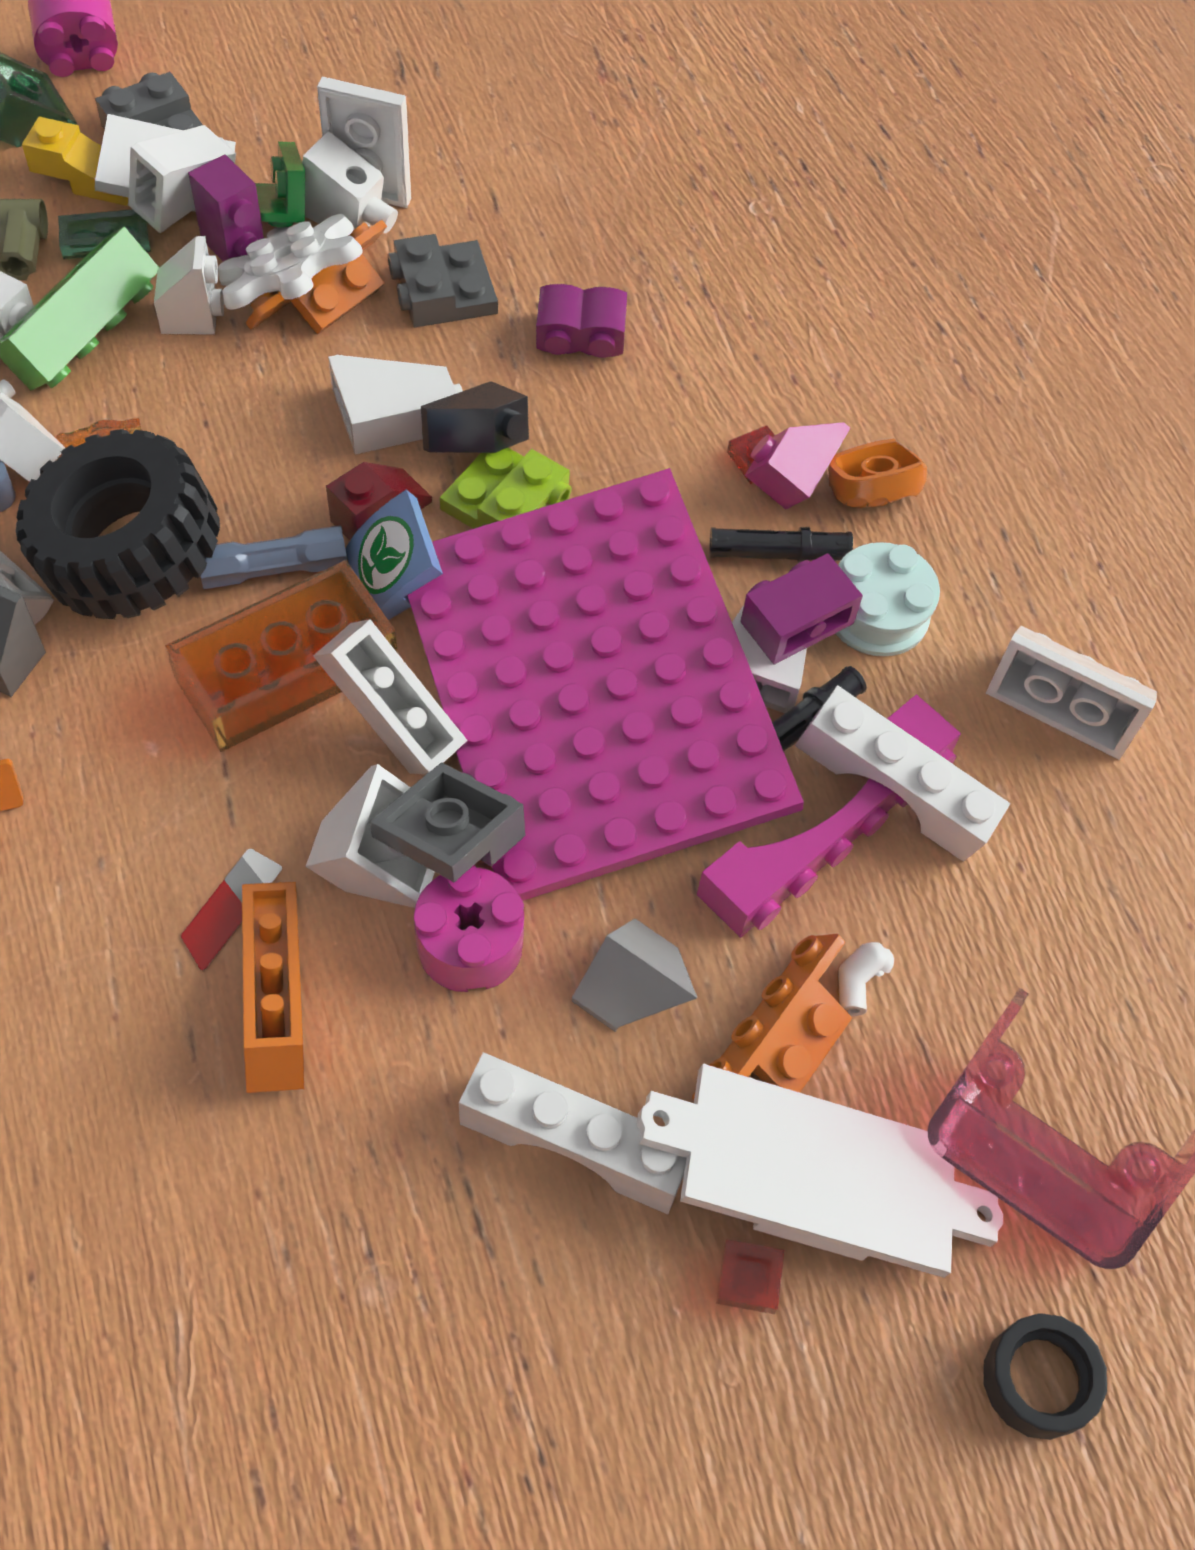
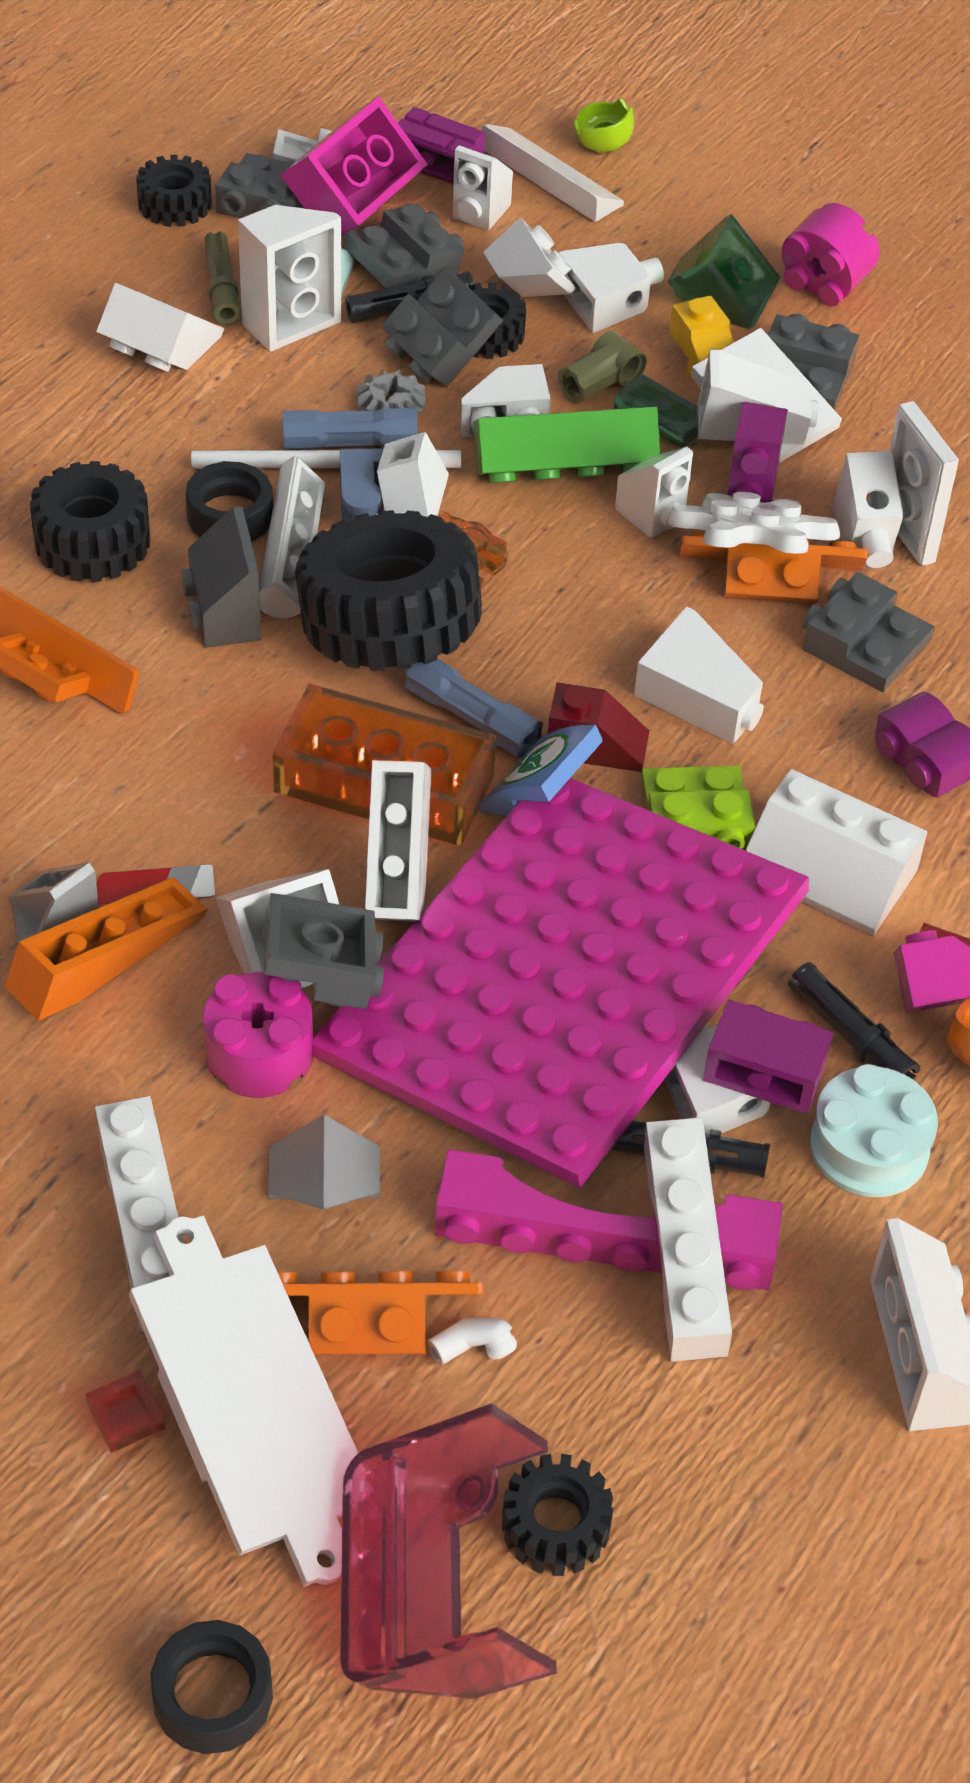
camera: 55 degrees right, 10 degrees down
(188, 1001) = (54, 899): none -> light grey slope
(285, 200) = (820, 476): green bracket -> none
(475, 420) = (731, 735): black slope -> none
(626, 436) = (847, 848): none -> white slope
(1076, 1008) = (557, 1546): none -> black tyre

